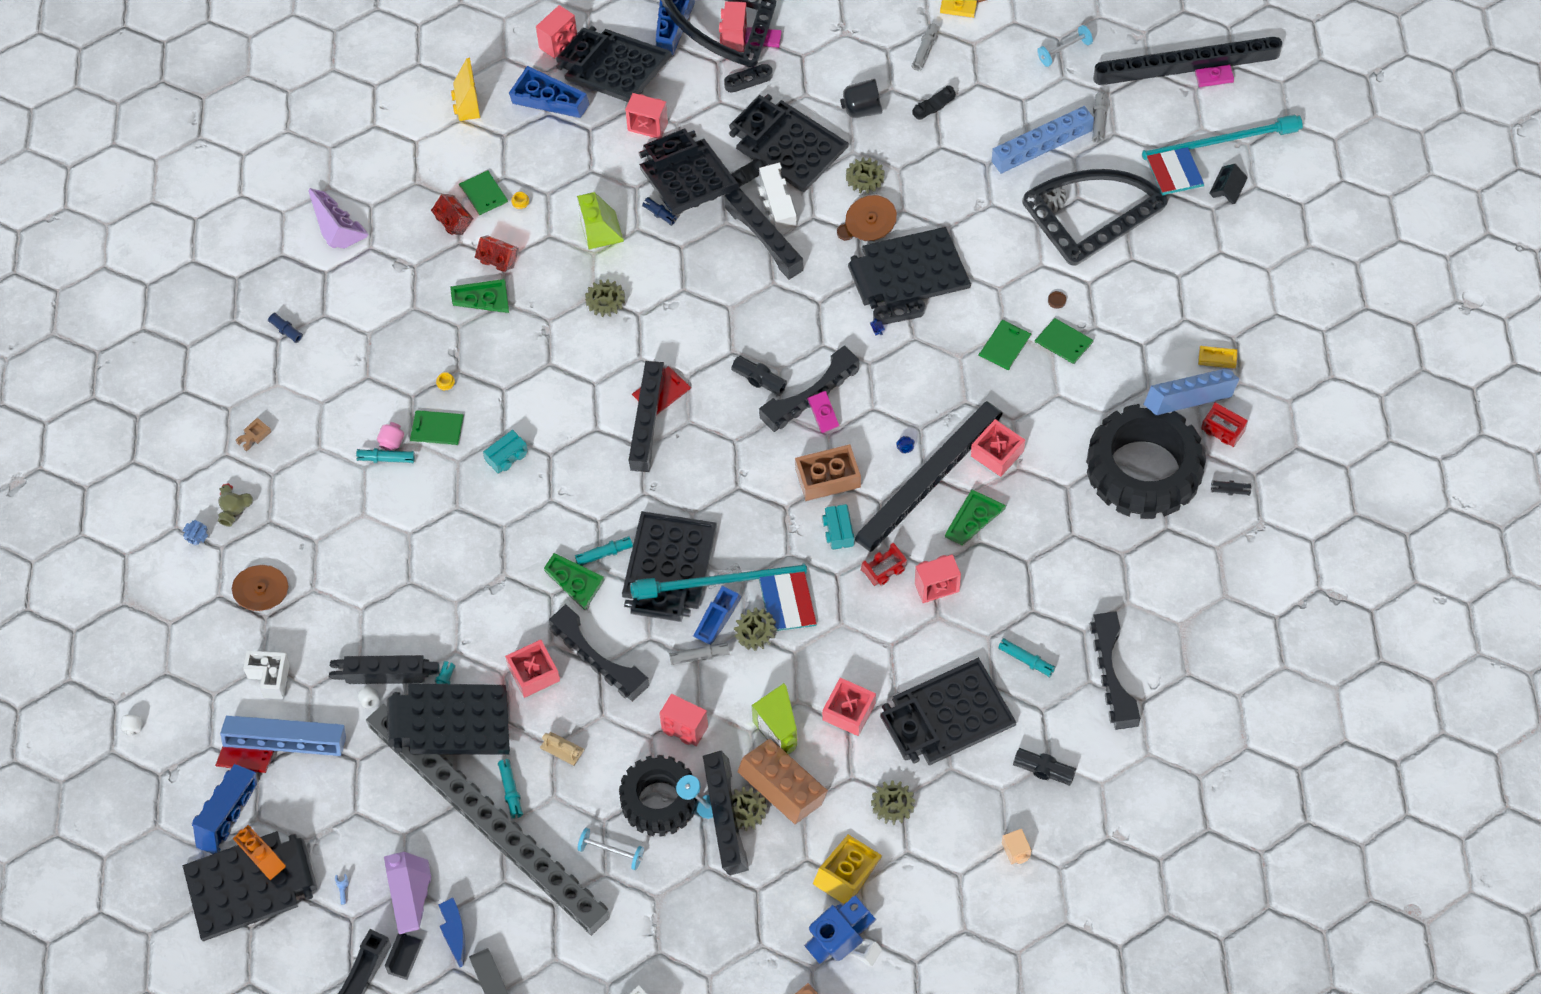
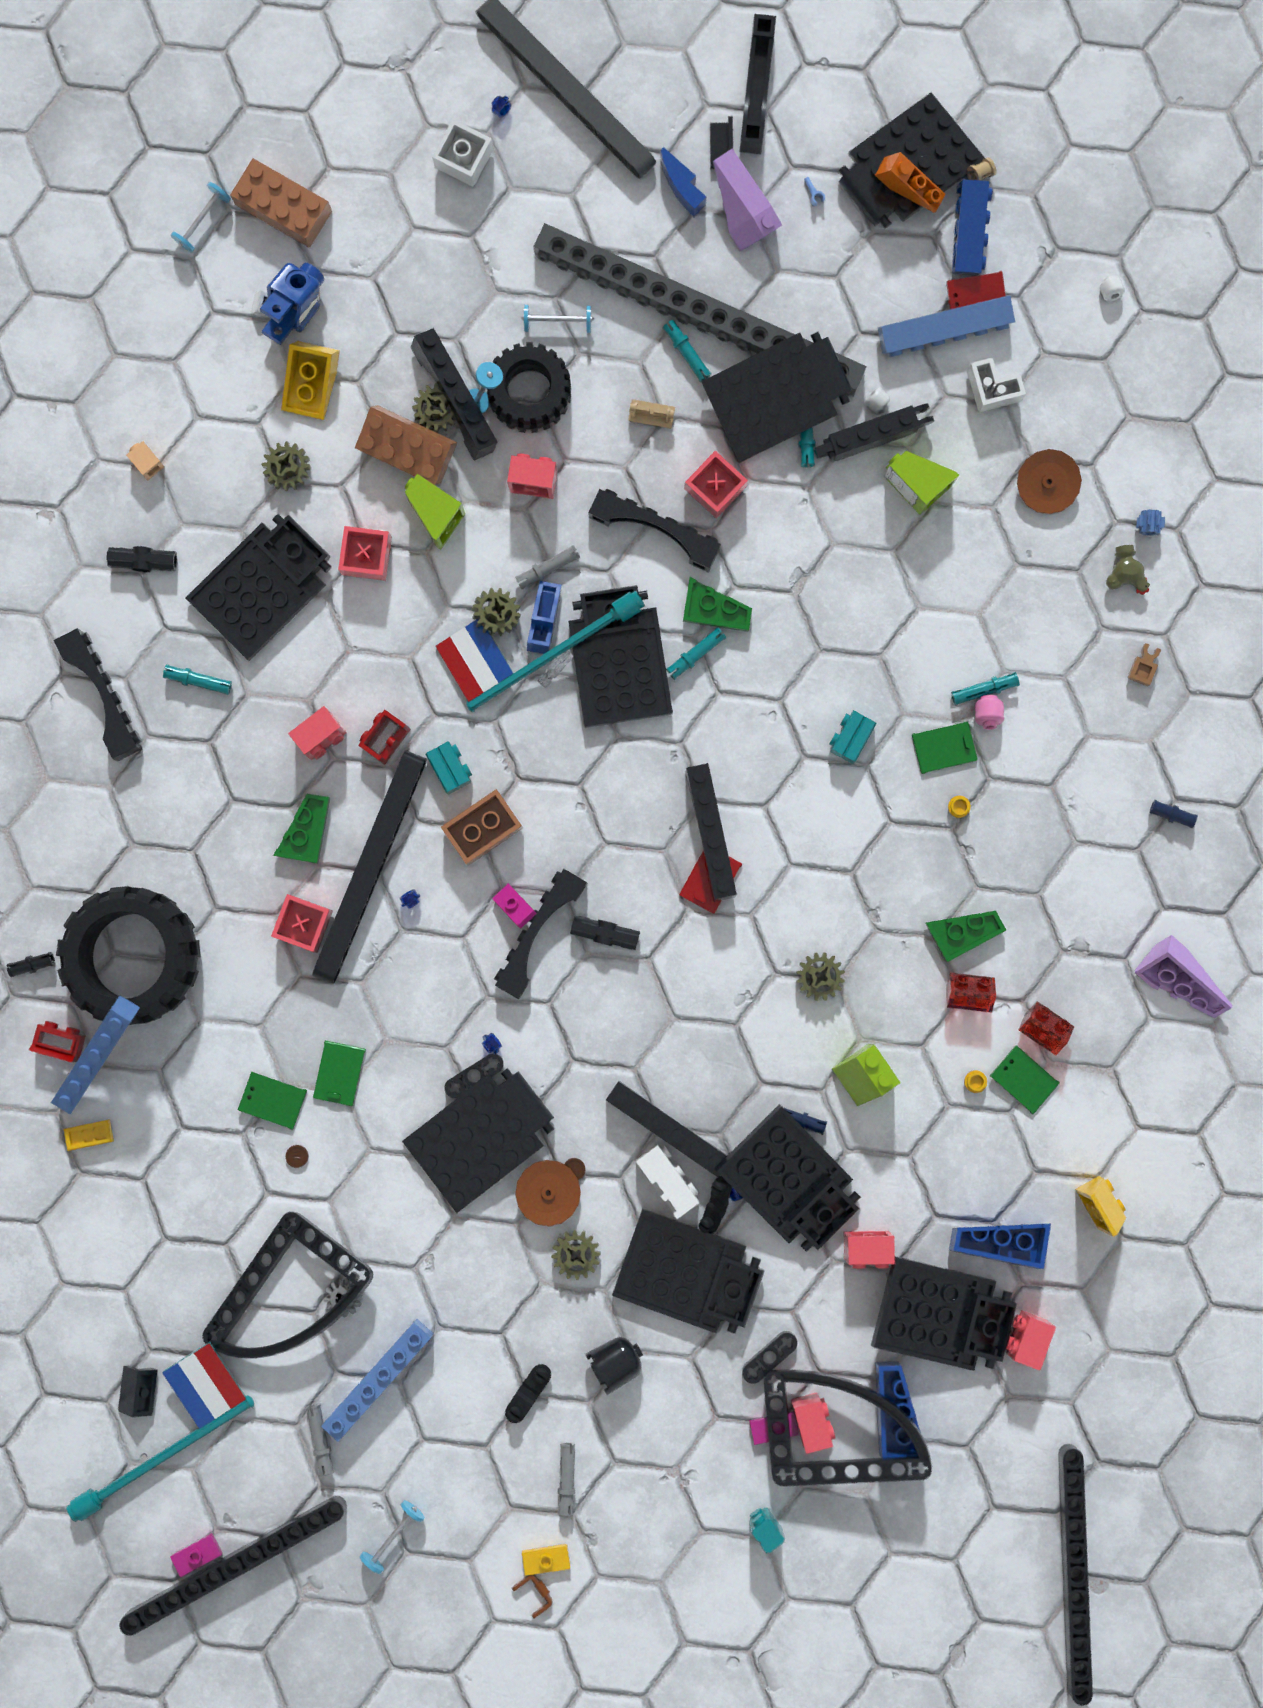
camera: 160 degrees right, 25 degrees up
(191, 853) = (982, 170): none -> tan bush
(362, 615) = (919, 479): none -> lime slope

